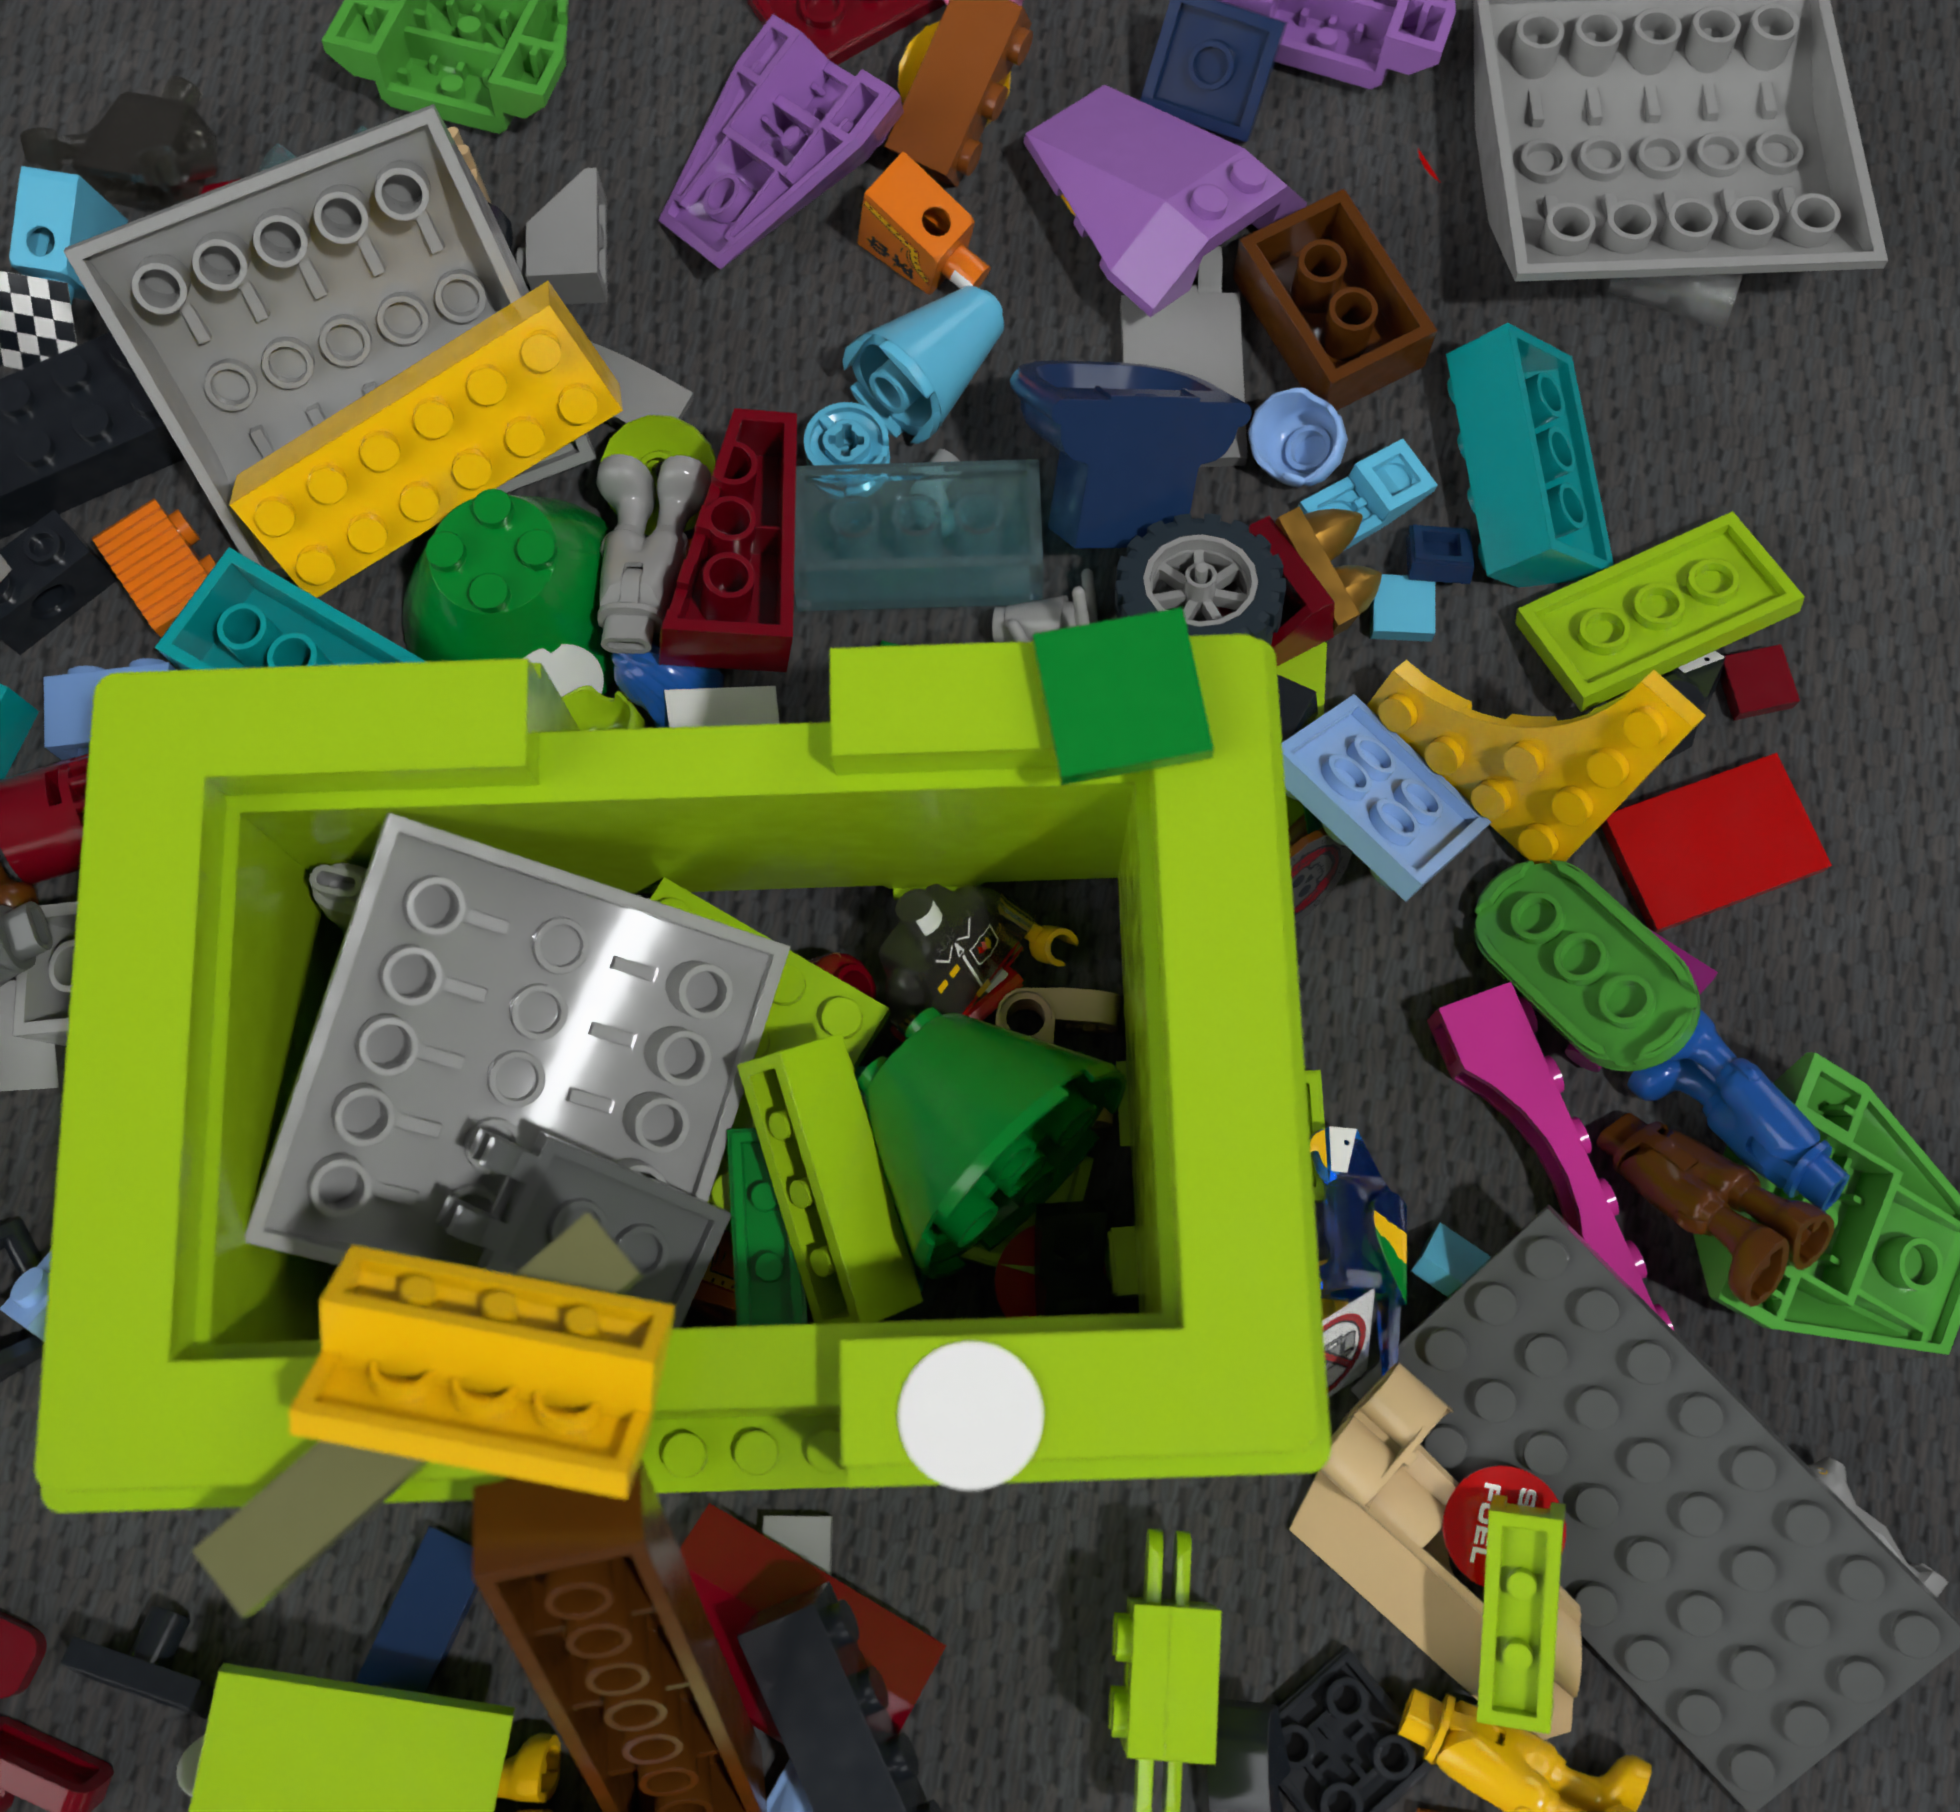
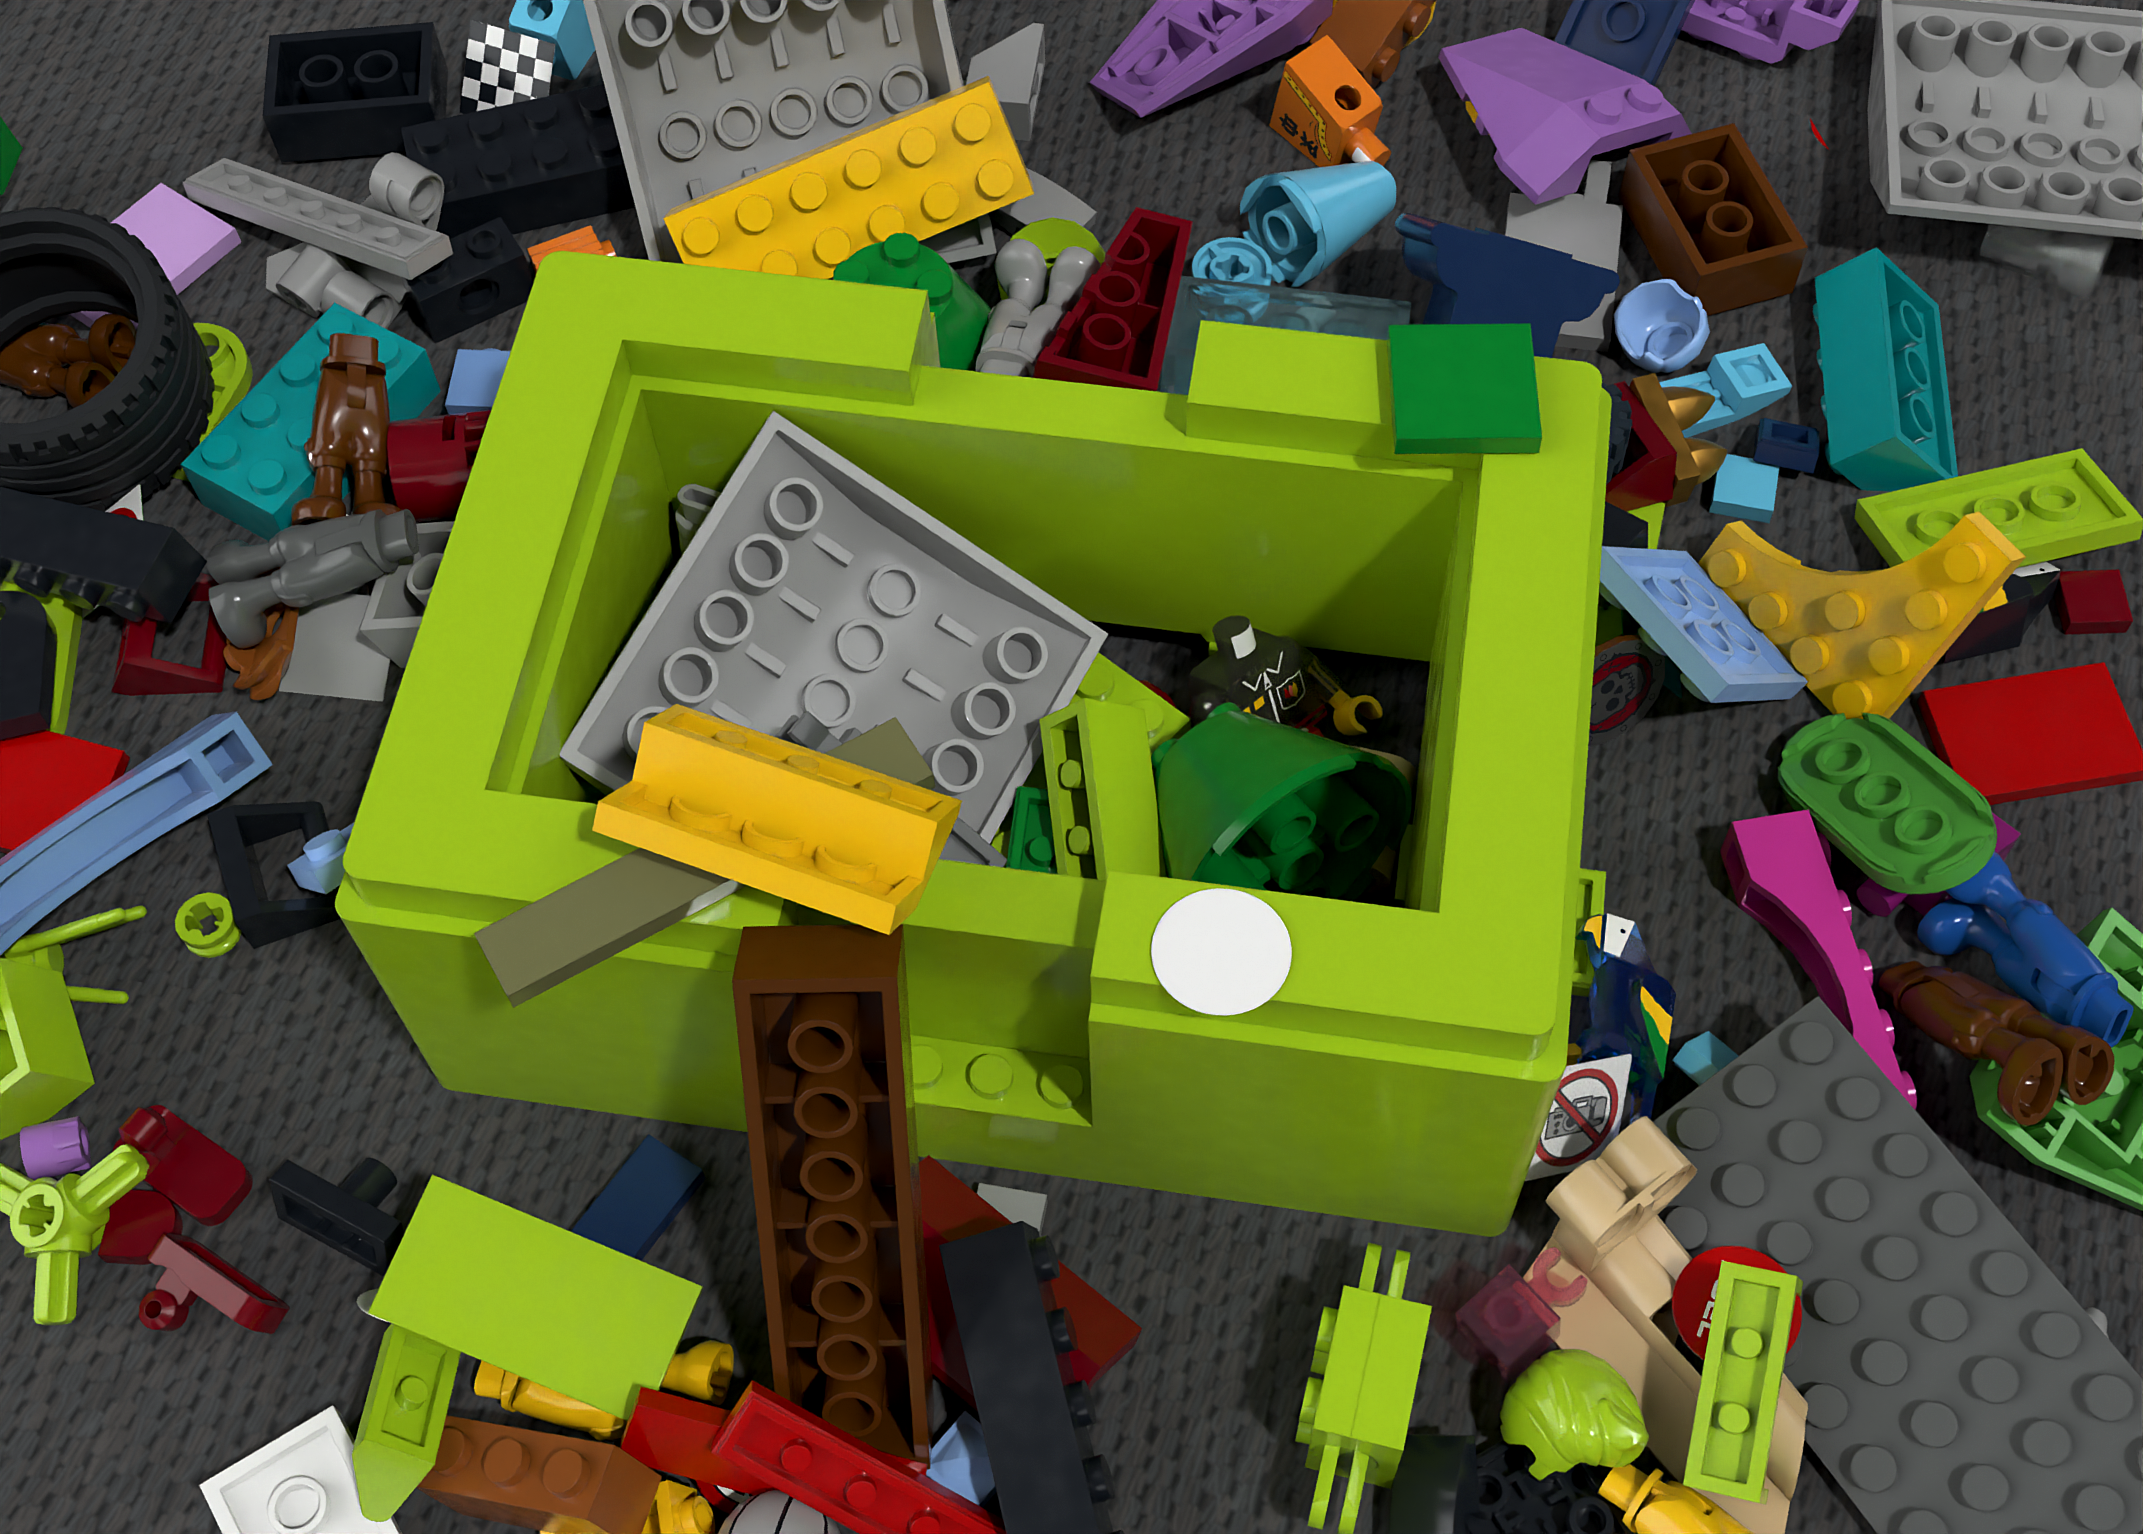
camera: 10 degrees right, 15 degrees down
(1295, 1571) = (1515, 1319): none -> clear pink brick
(1365, 1664) = (1573, 1412): none -> lime hair

